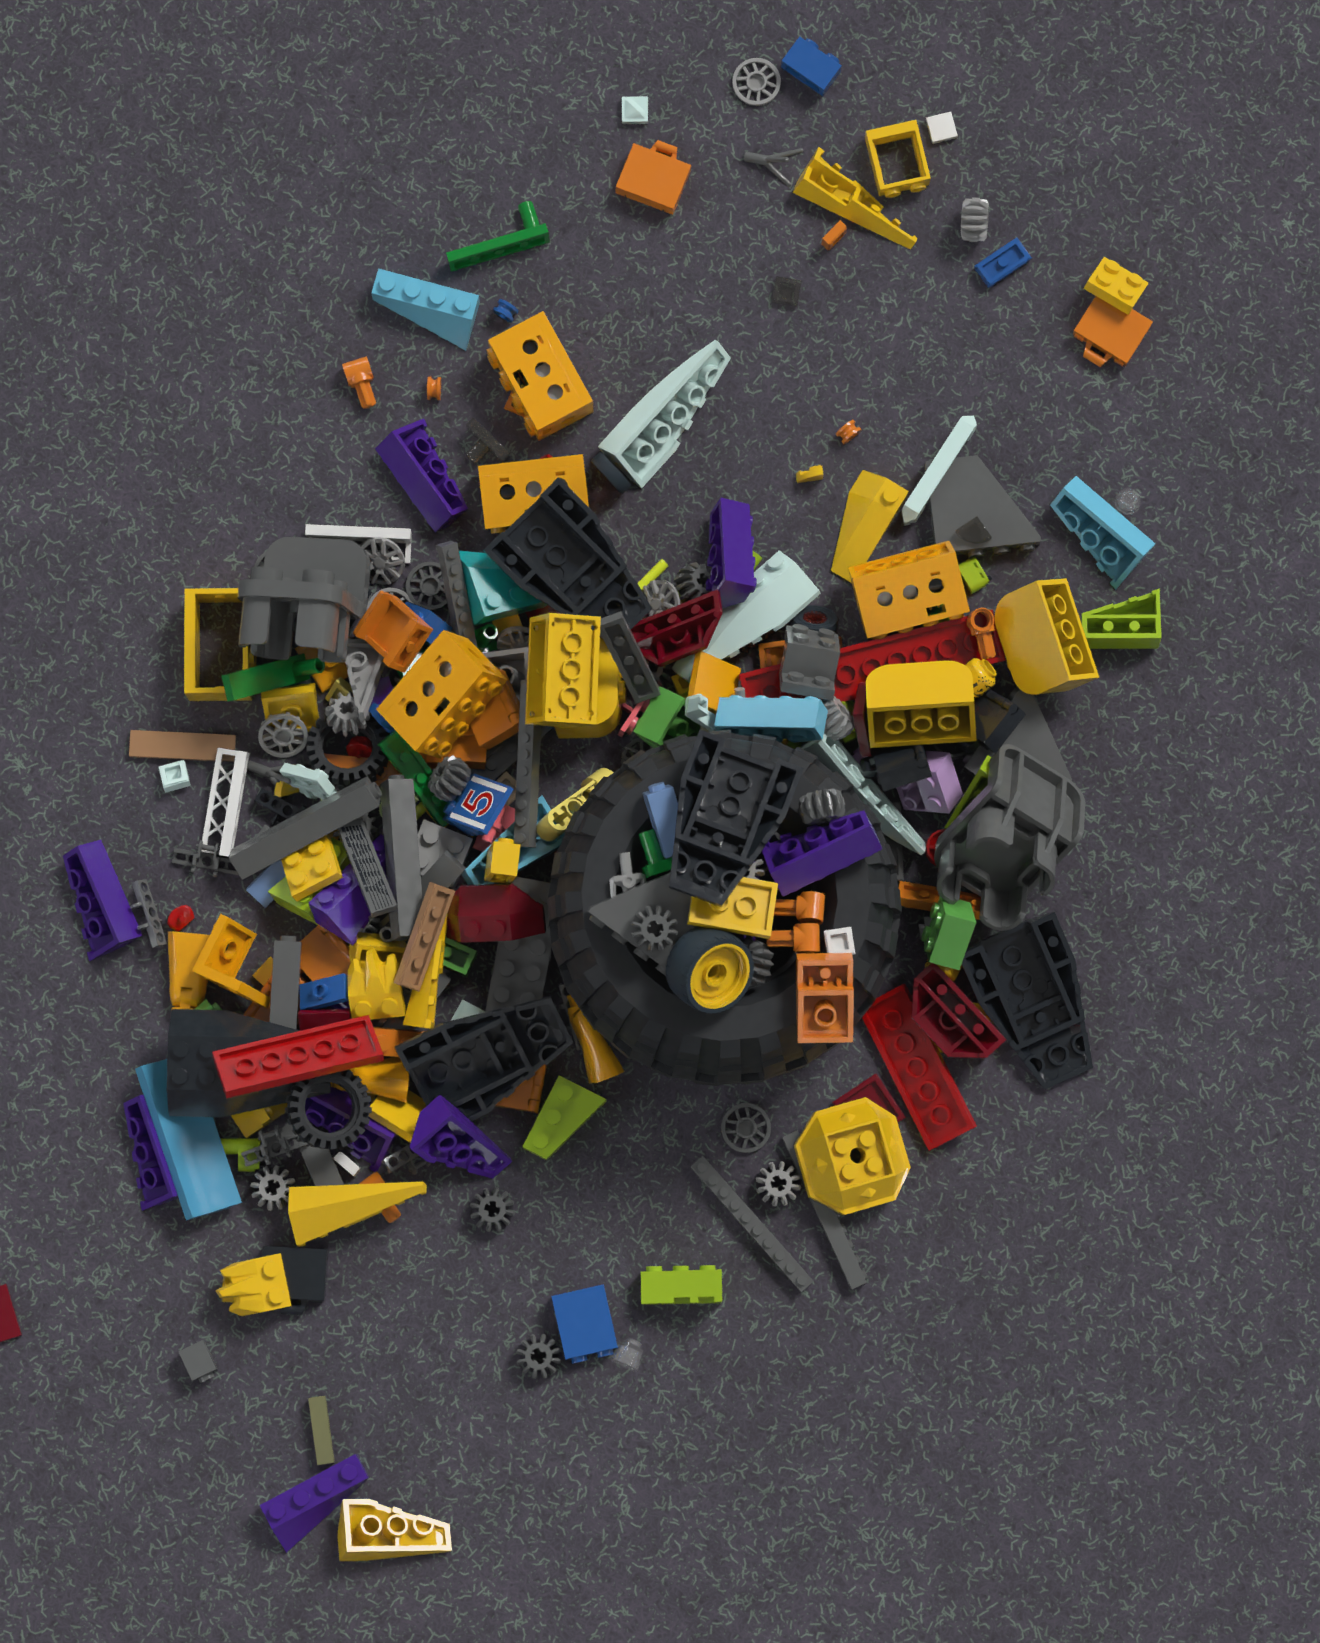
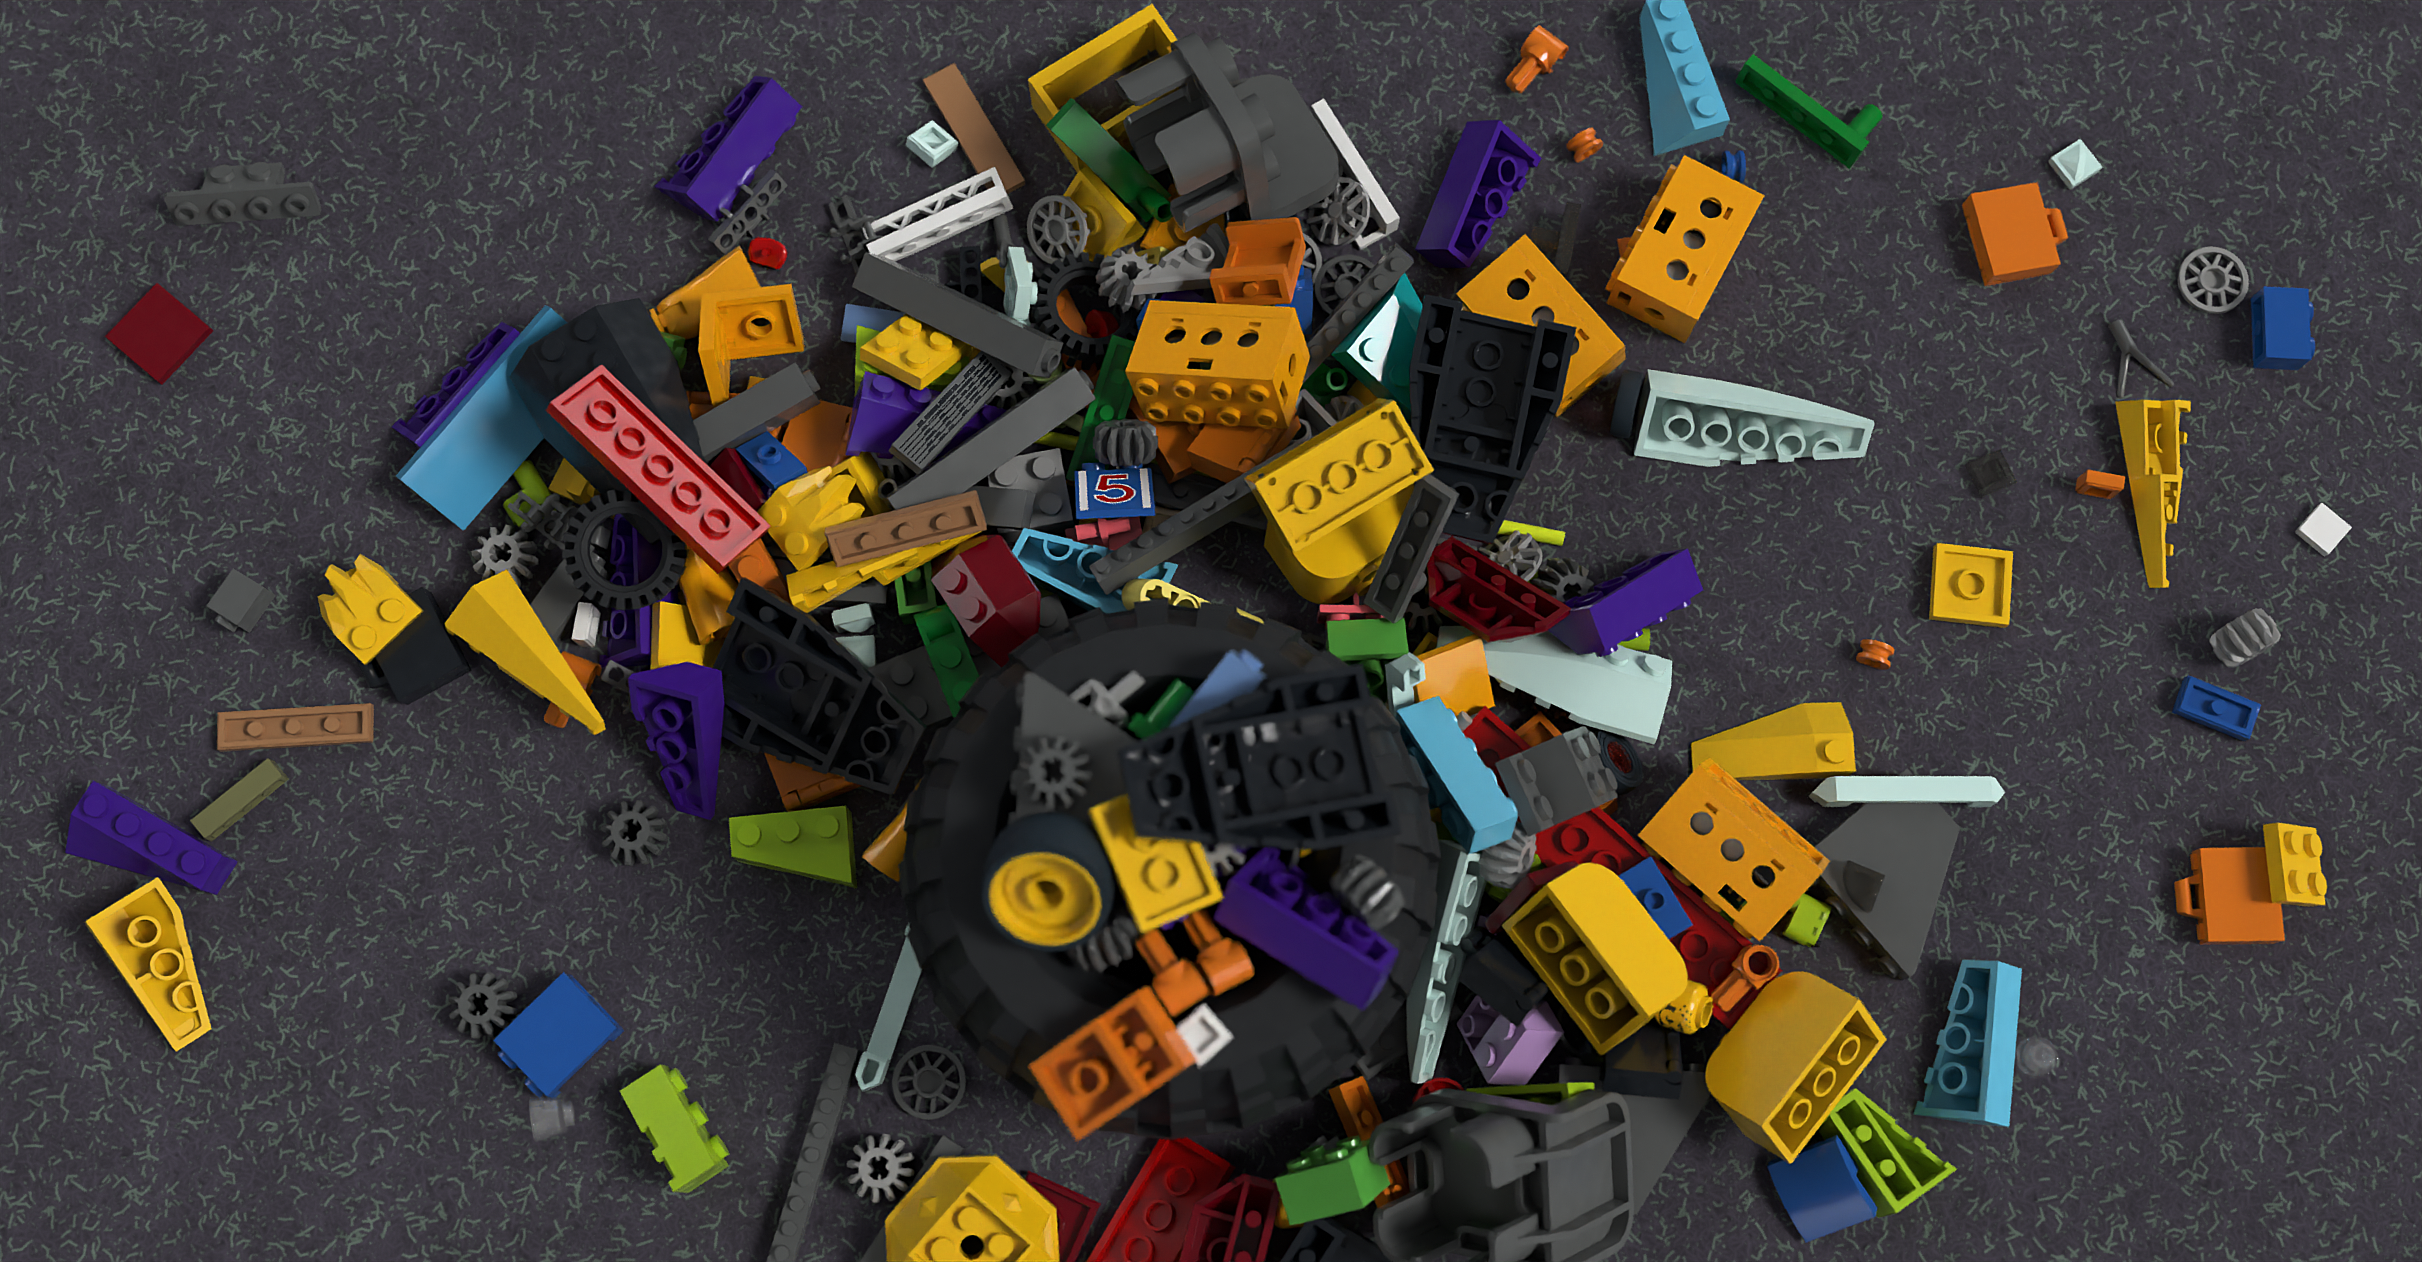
camera: 60 degrees right, 5 degrees down
(296, 1373) = (295, 727): none -> medium nougat tile
(446, 1005) = (853, 618): none -> light aqua tile
(502, 861) = (1057, 560): yellow brick -> none
(513, 960) = (947, 653): none -> green plate
(687, 1117) = (877, 1058): none -> light aqua piece
(813, 474) = (1793, 646): yellow tile -> none
(844, 349) = (1971, 585): none -> yellow plate
(895, 133) = (2272, 474): yellow window -> none
(908, 651) = (1656, 897): none -> blue plate
(1123, 669) = (1822, 1189): none -> blue slope

